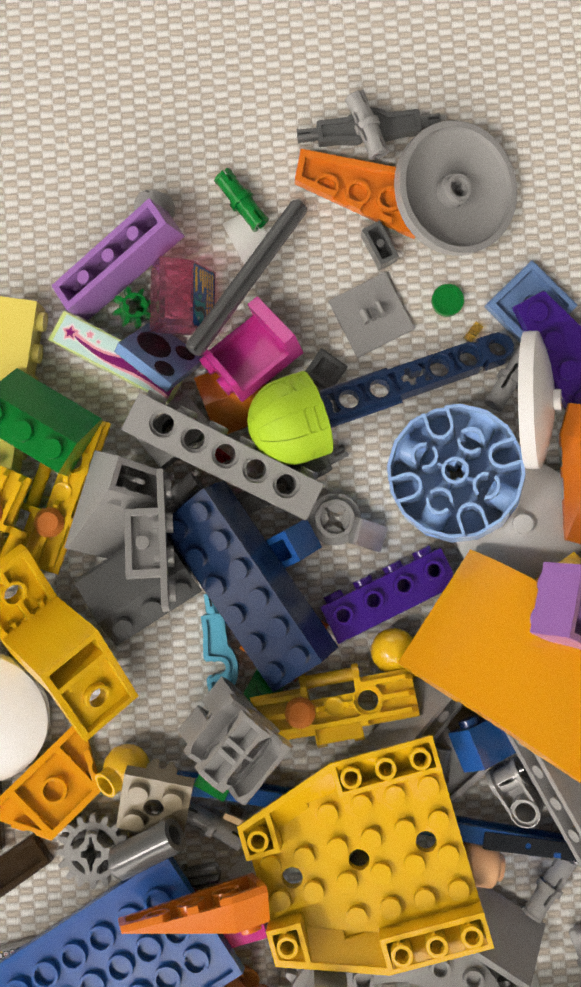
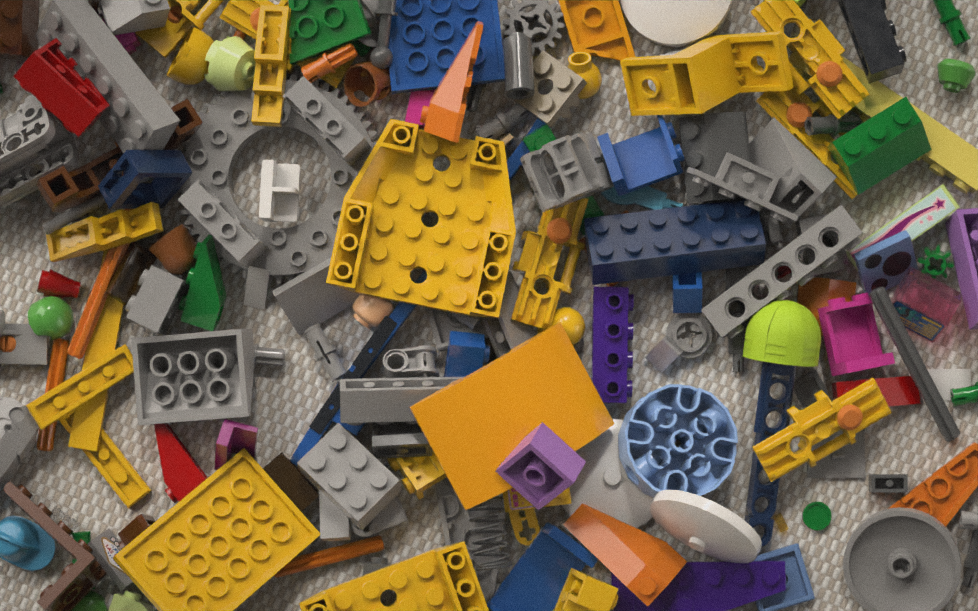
camera: 120 degrees right, 0 degrees up
(43, 484) = (831, 125): none -> dark grey axle
(178, 662) = (642, 158): none -> blue panel
(298, 304) = (895, 390): none -> red slope
(362, 341) = (819, 421): none -> yellow piece

